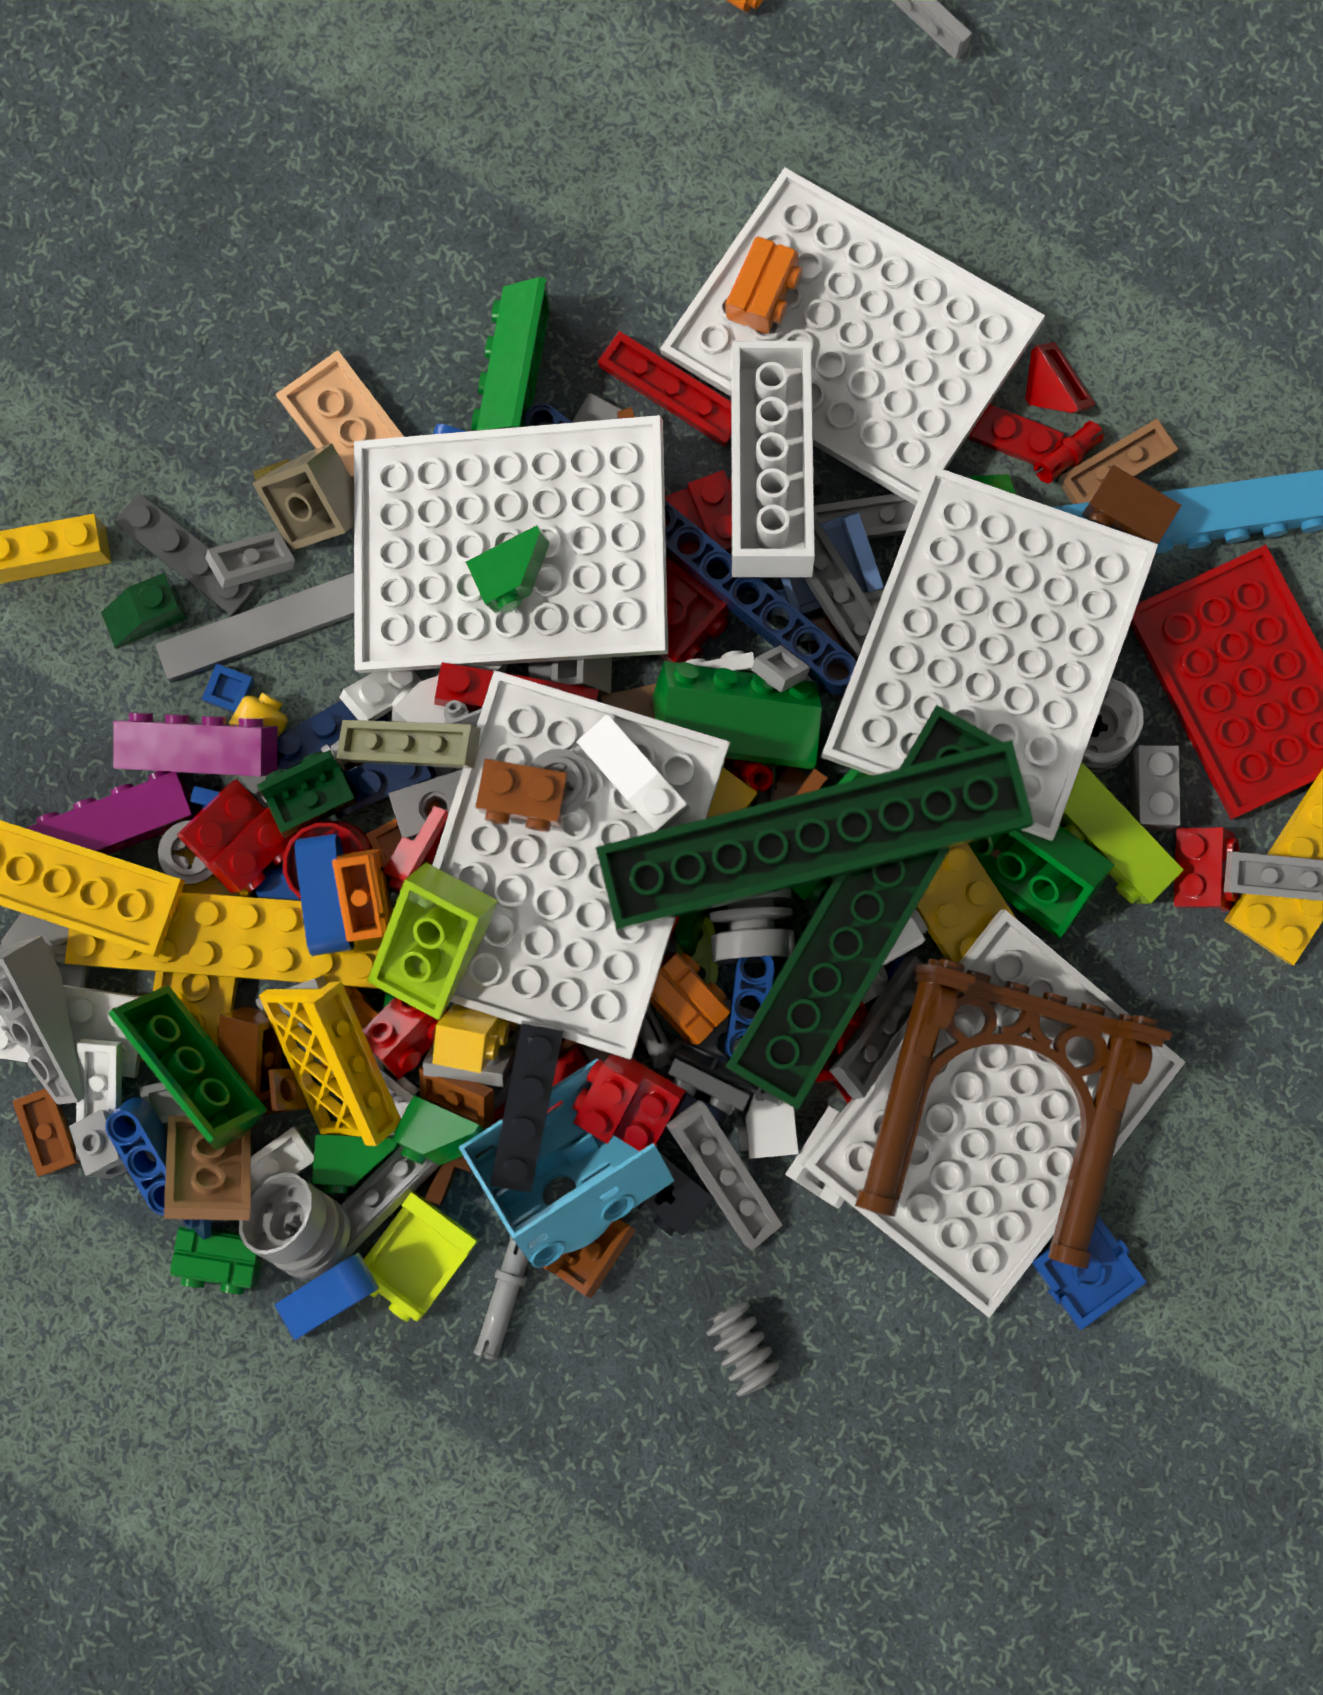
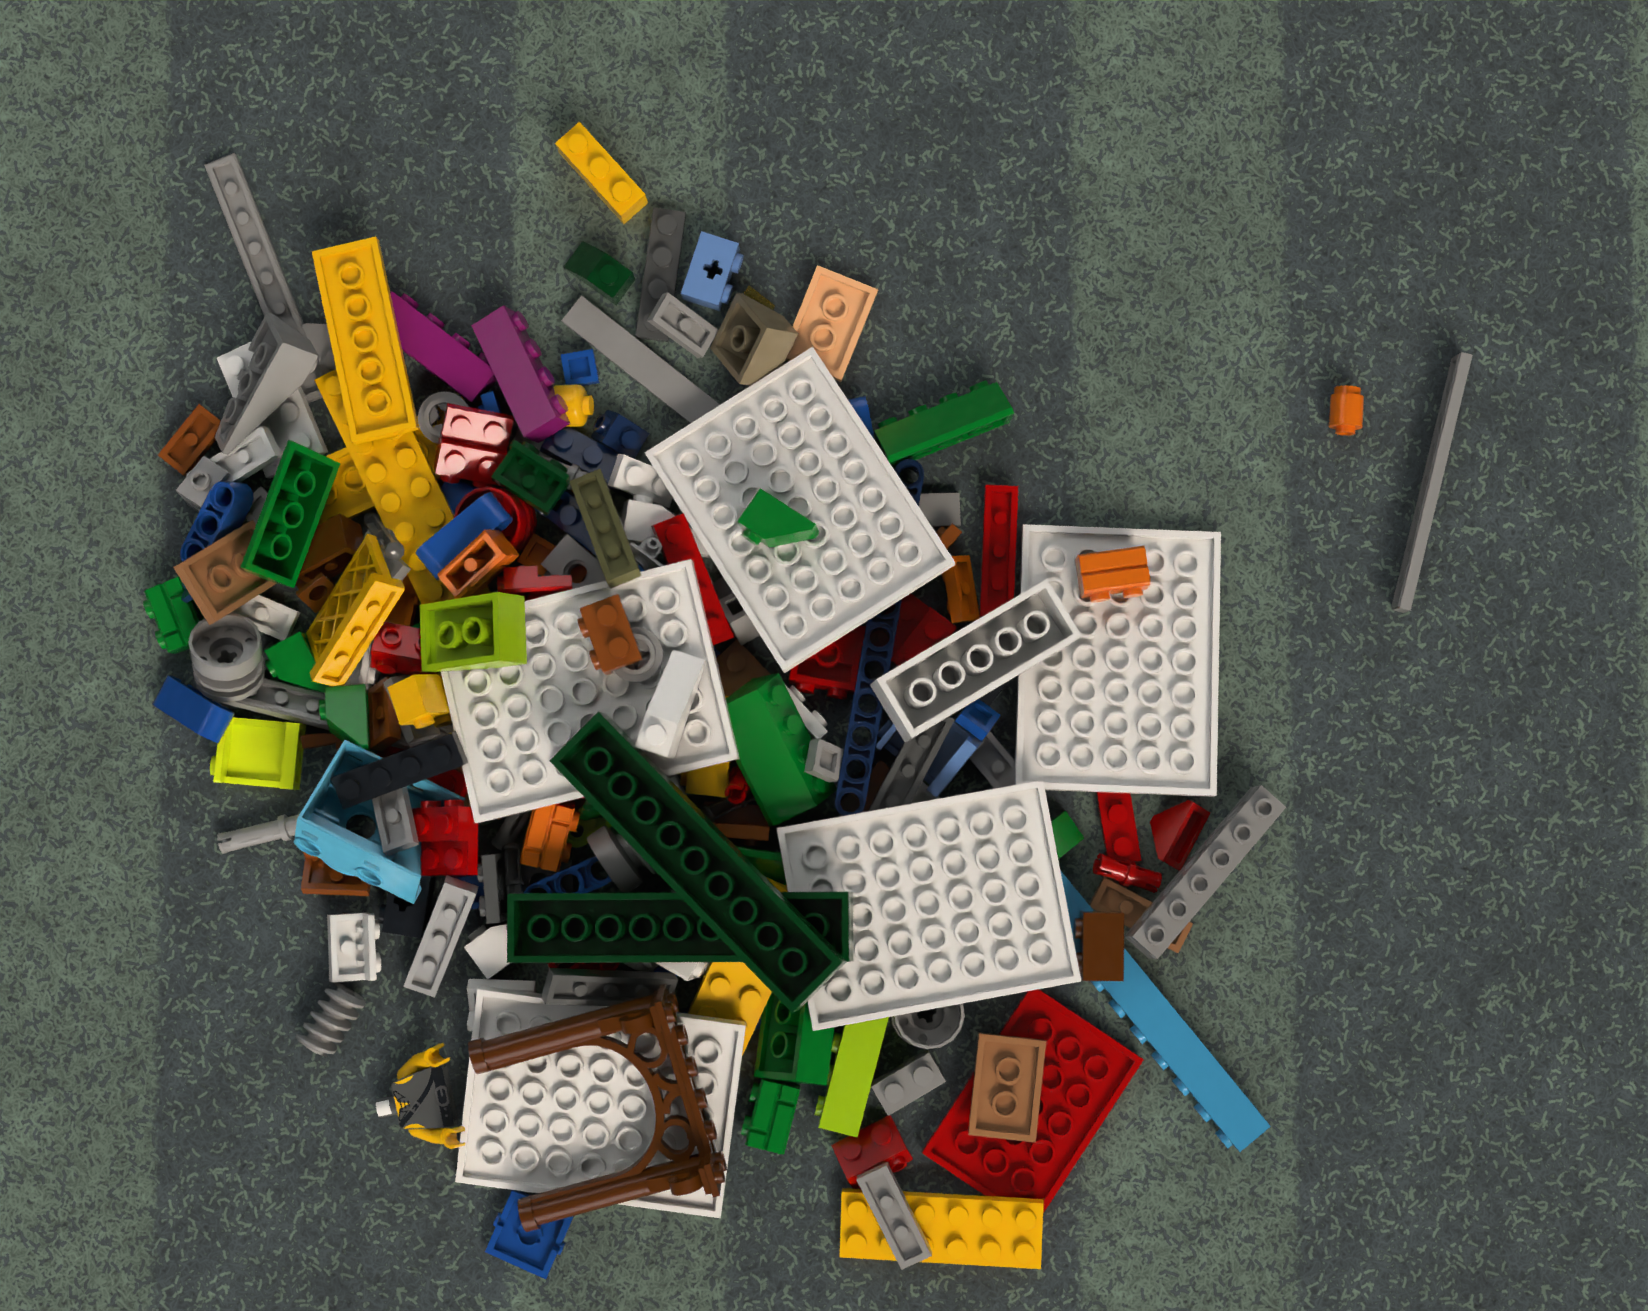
camera: 60 degrees right, 5 degrees up
(203, 481) = (708, 253): none -> medium blue brick
(291, 975) = (386, 538): none -> dark grey piece
(317, 689) = (619, 433): none -> dark blue bracket
(577, 1145) = (395, 821): none -> light grey plate
(679, 1278) = (353, 947): none -> white bracket
(701, 453) = (961, 591): none -> orange plate
(831, 500) = (978, 719): none -> blue plate
(884, 1298) = (424, 1099): none -> torso
(1108, 947) = (771, 1116): none -> green brick
(1113, 372) = (1204, 872): none -> light grey brick
(1218, 690) = (1006, 1087): none -> medium nougat plate

